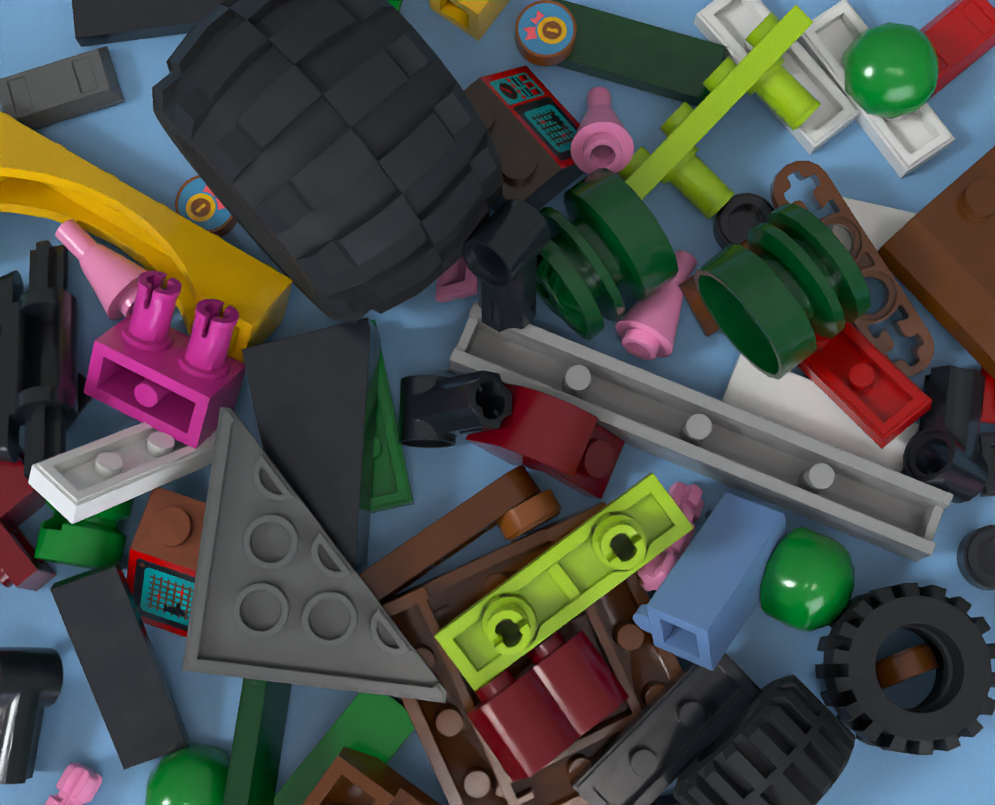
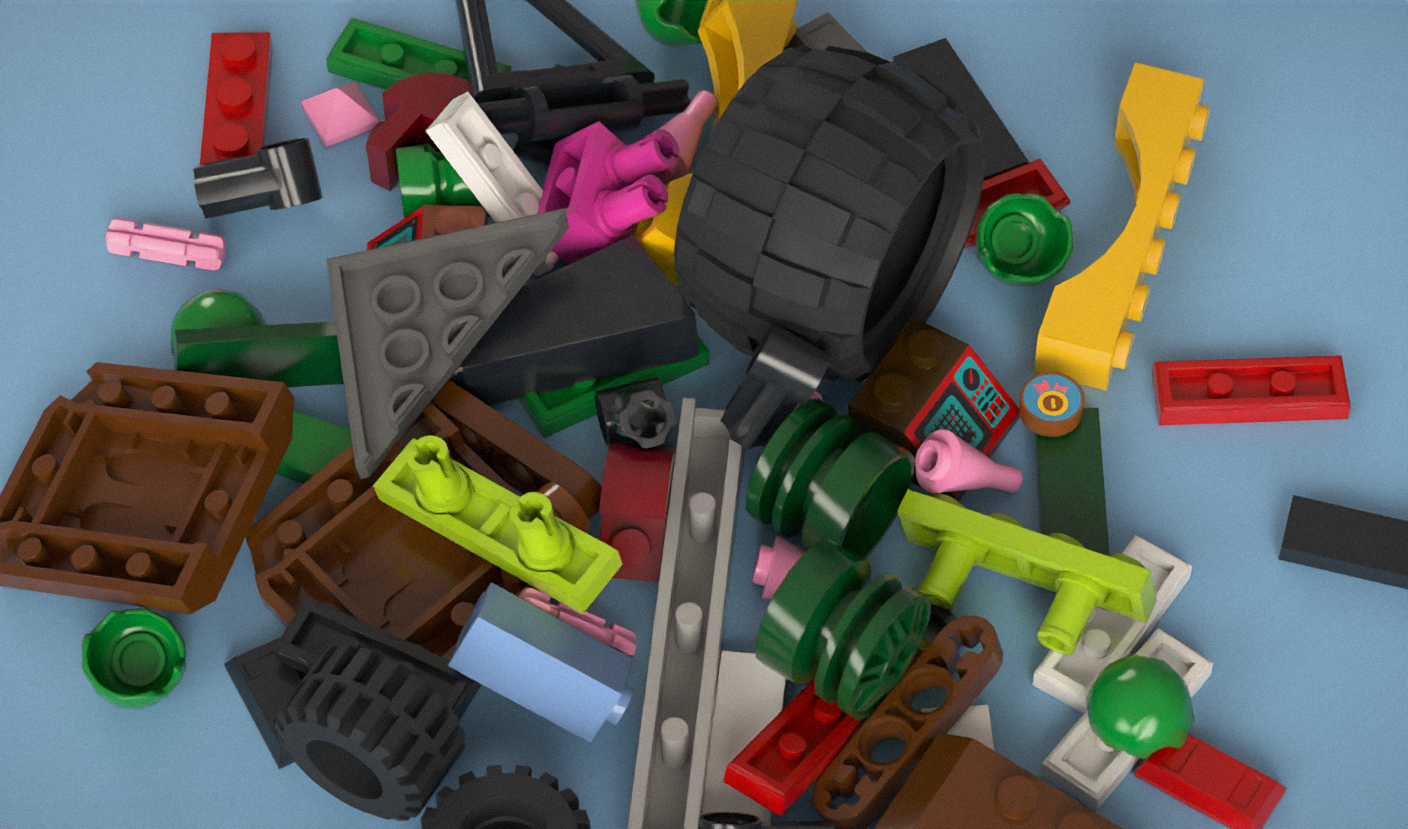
camera: 75 degrees right, 25 degrees down
(120, 664) = (328, 229): black tile -> none
(547, 704) = (379, 553): dark red brick -> none
(807, 580) = (573, 743): green hair -> none

